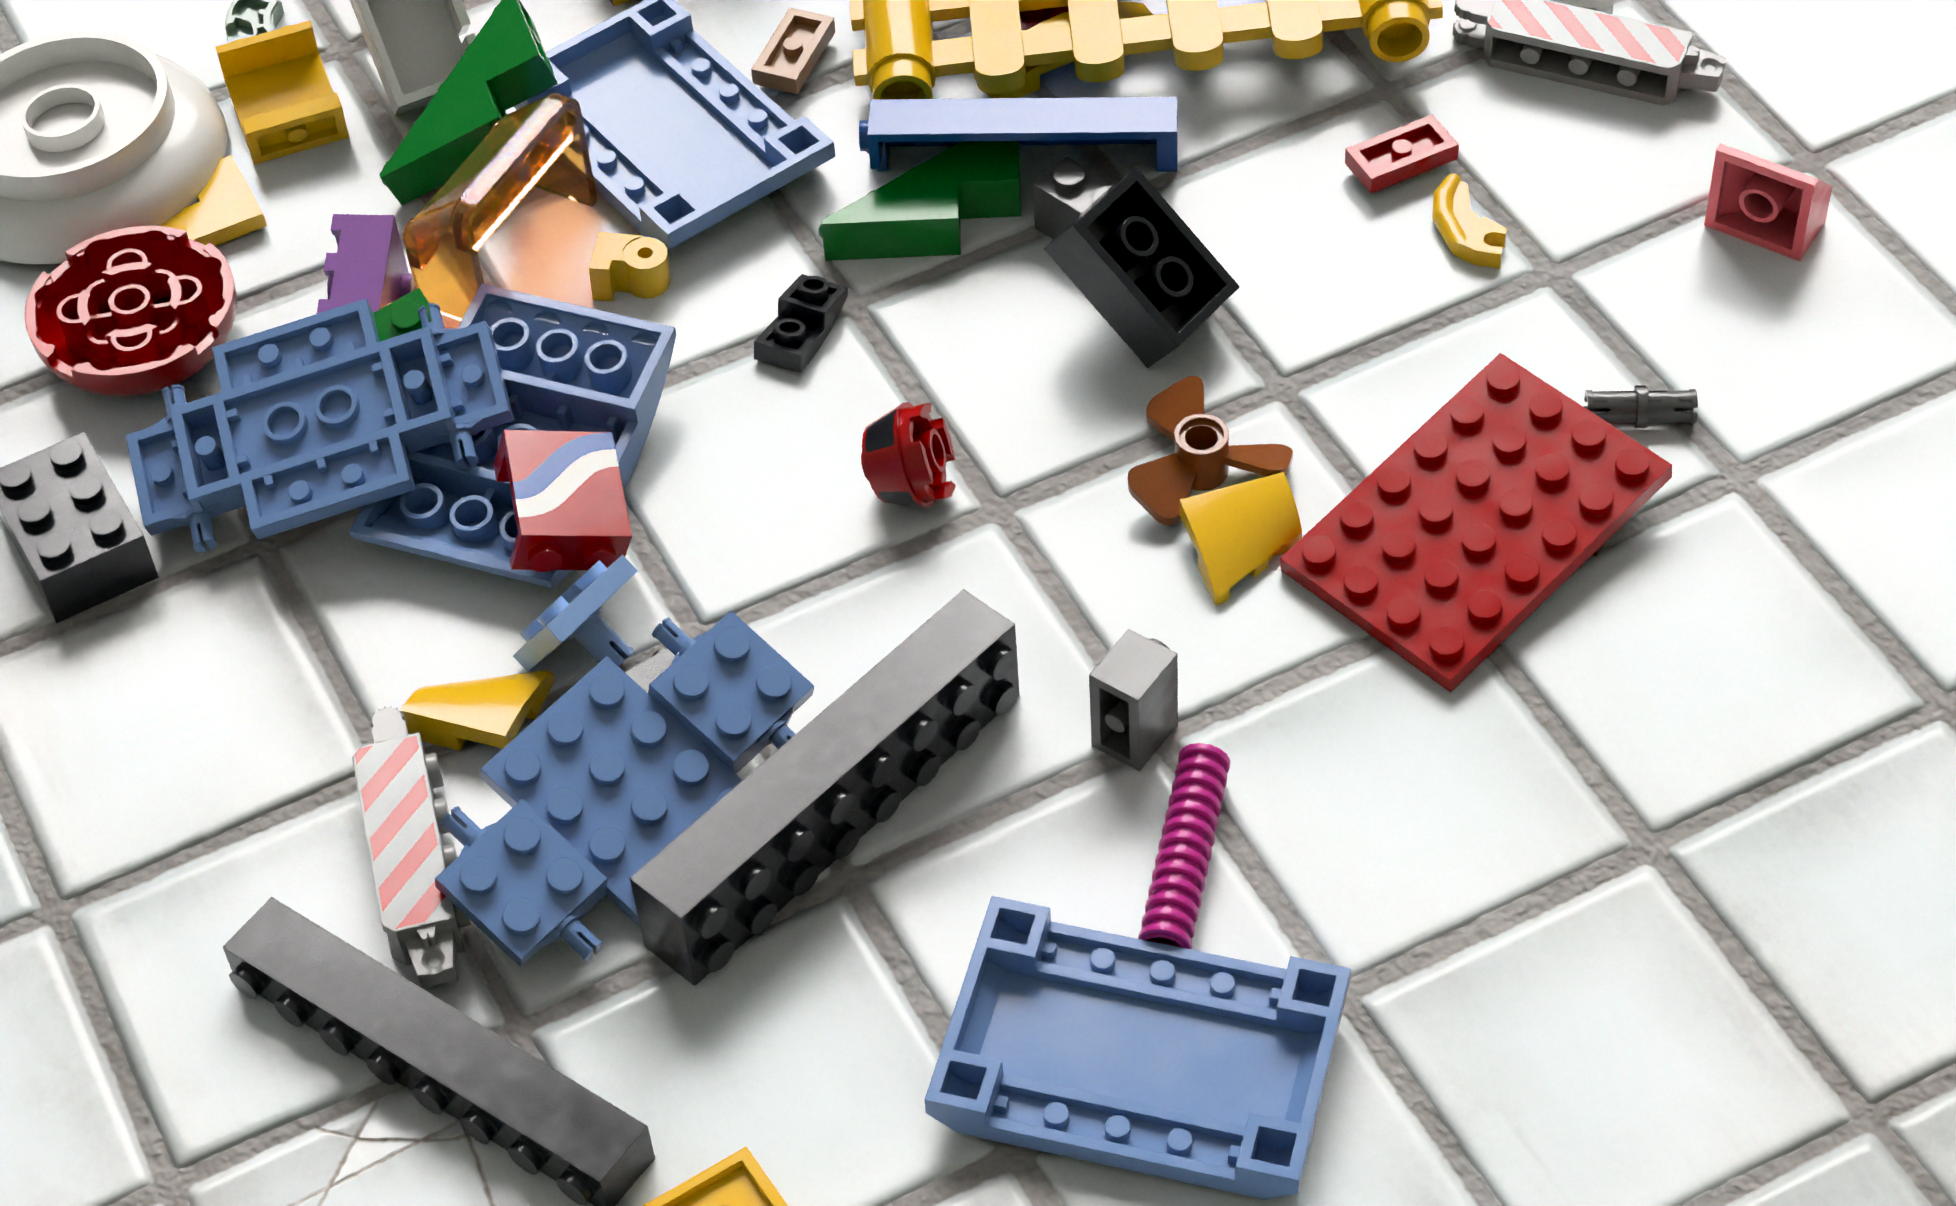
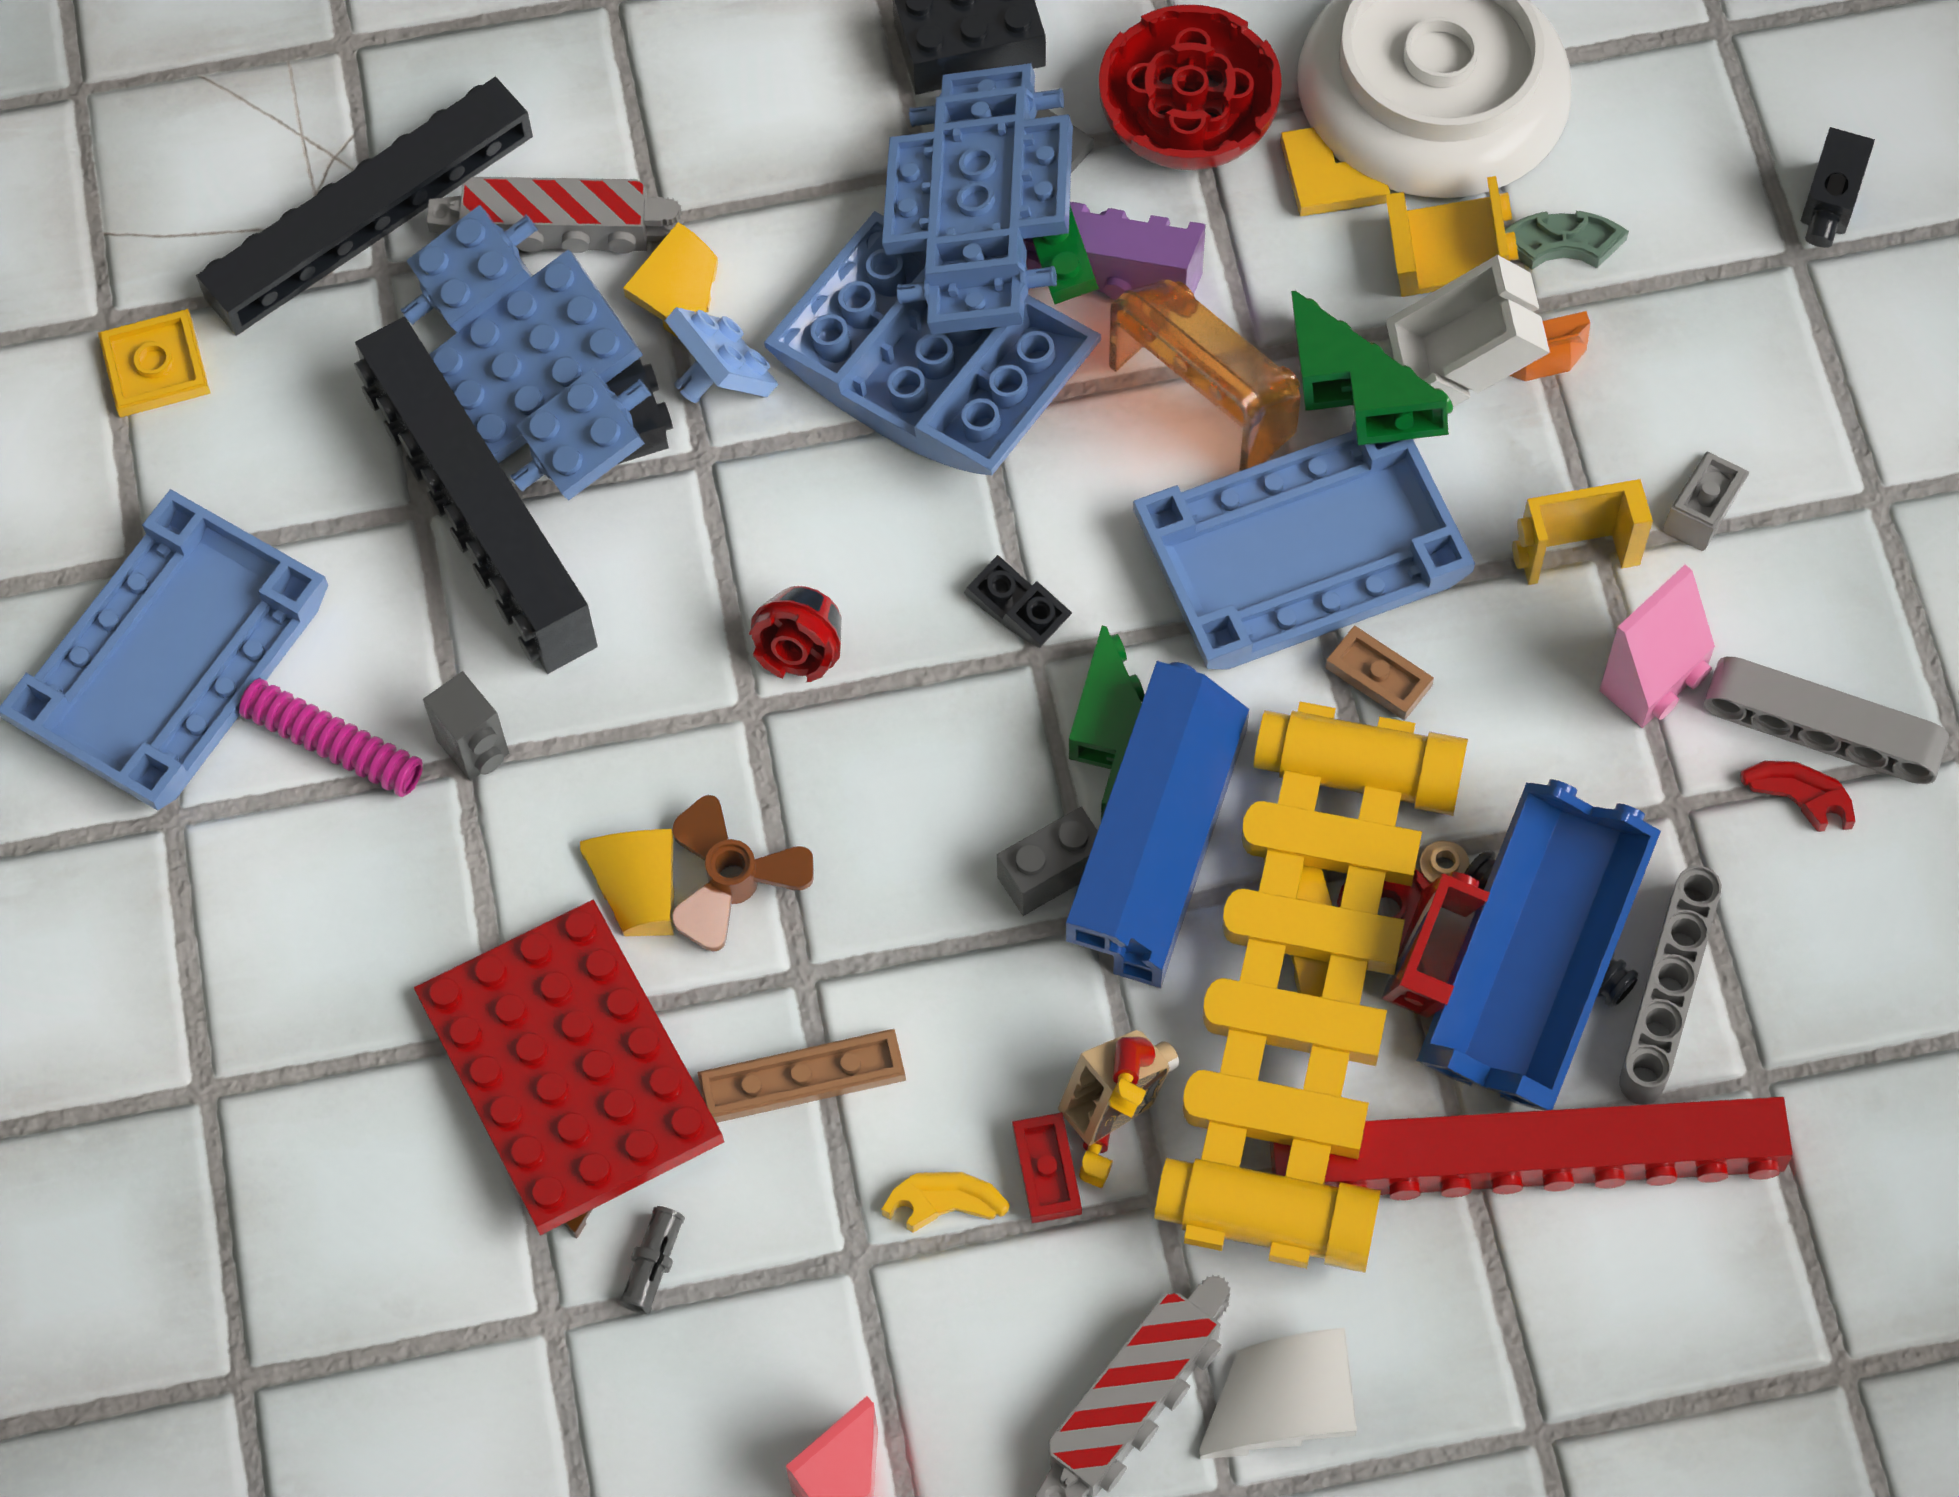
camera: 105 degrees right, 15 degrees up
(564, 499) = (821, 348): panel -> none
(628, 265) = (1132, 475): yellow leg -> none
(1142, 268) = (929, 860): black brick -> none
(1313, 95) = (1109, 1090): none -> torso
(1385, 347) = (802, 1076): none -> medium nougat tile

